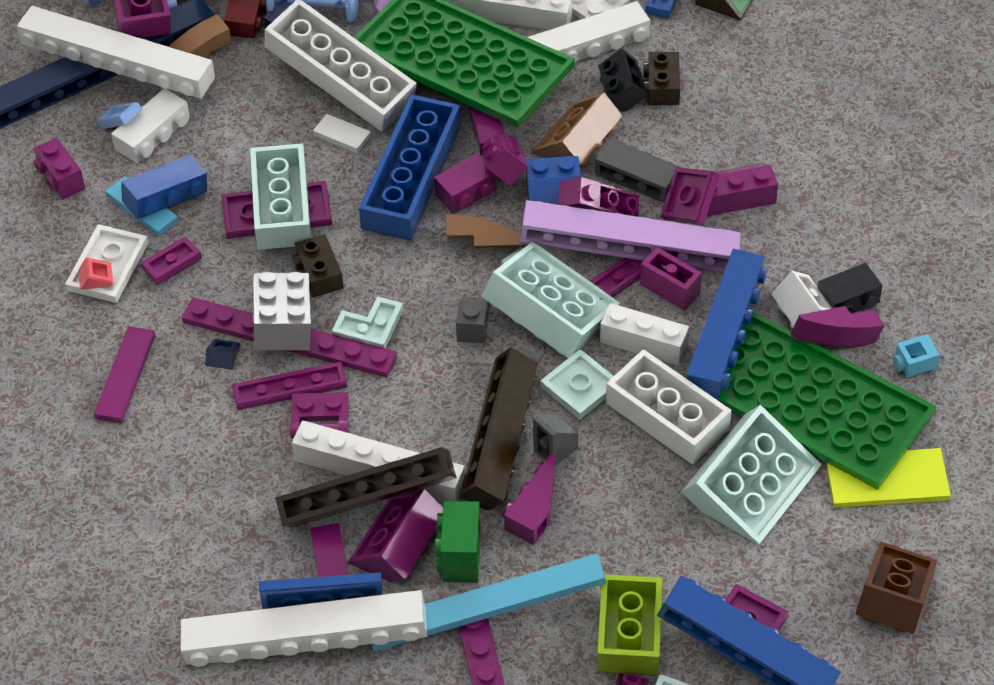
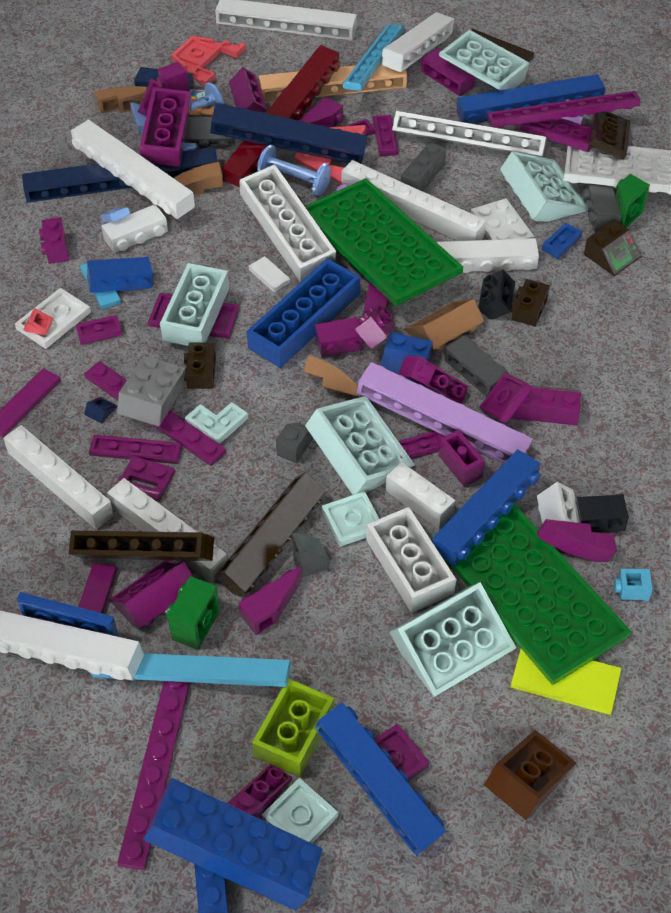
camera: 20 degrees right, 0 degrees up
(218, 444) = (59, 477): none -> white brick

